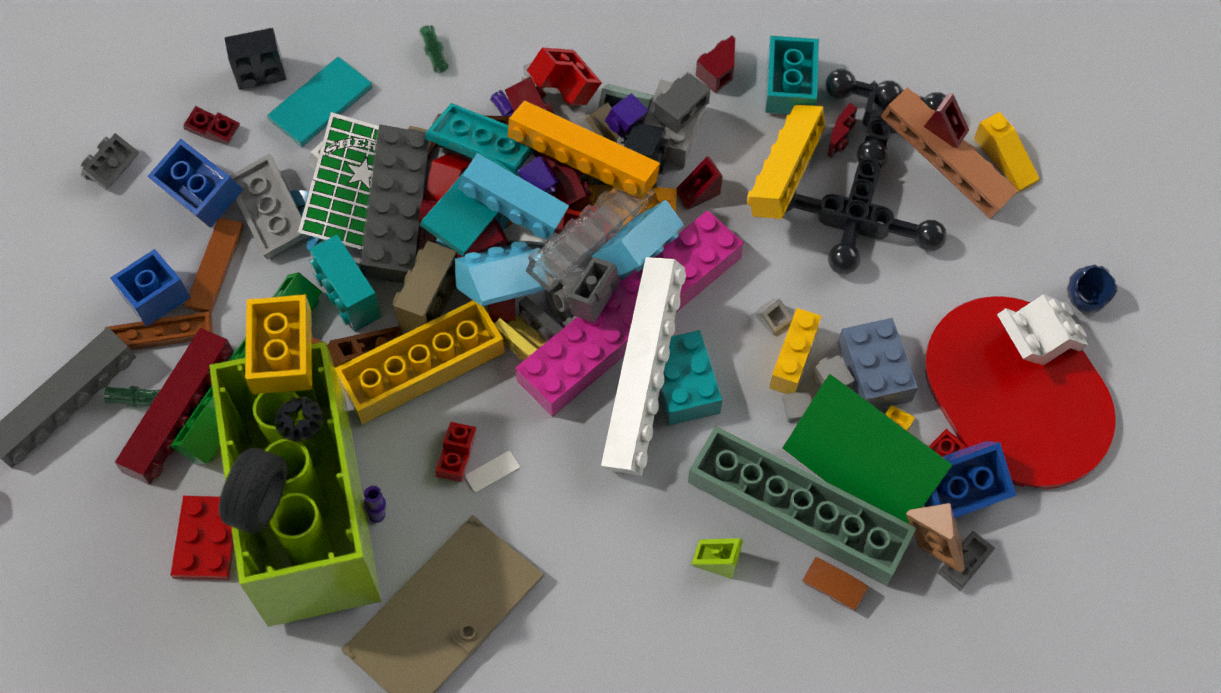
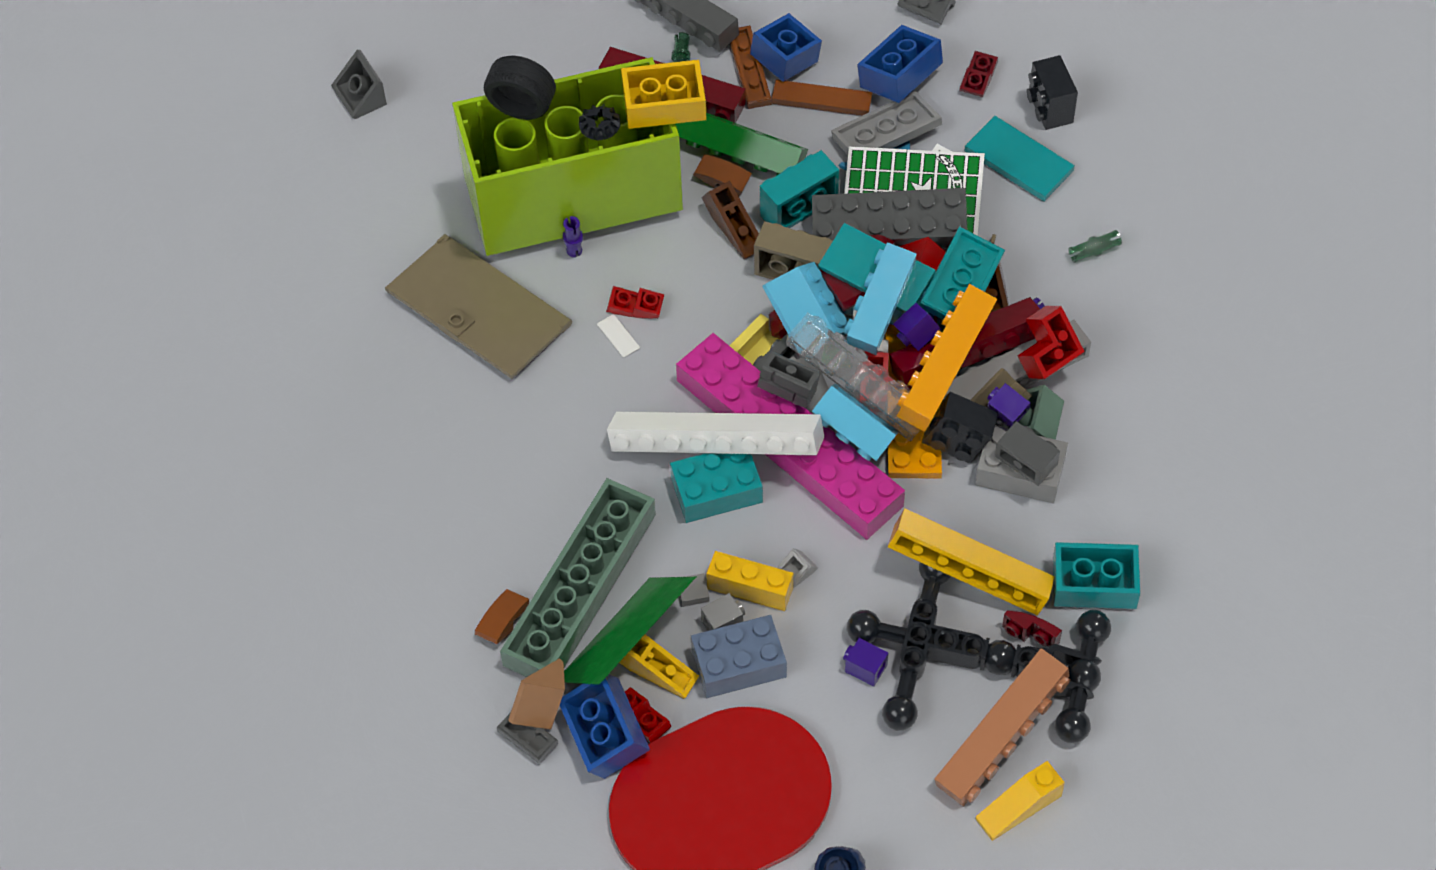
camera: 90 degrees right, 5 degrees down
(420, 361) = (718, 258): yellow brick -> none
(700, 184) = (947, 495): dark red slope -> none
(717, 66) = (1107, 509): dark red slope -> none
(718, 555) = (529, 520): lime slope -> none
(878, 260) = (865, 661): none -> dark purple brick
(948, 122) = (1023, 707): dark red slope -> none
(1043, 329) = (778, 807): white bracket -> none

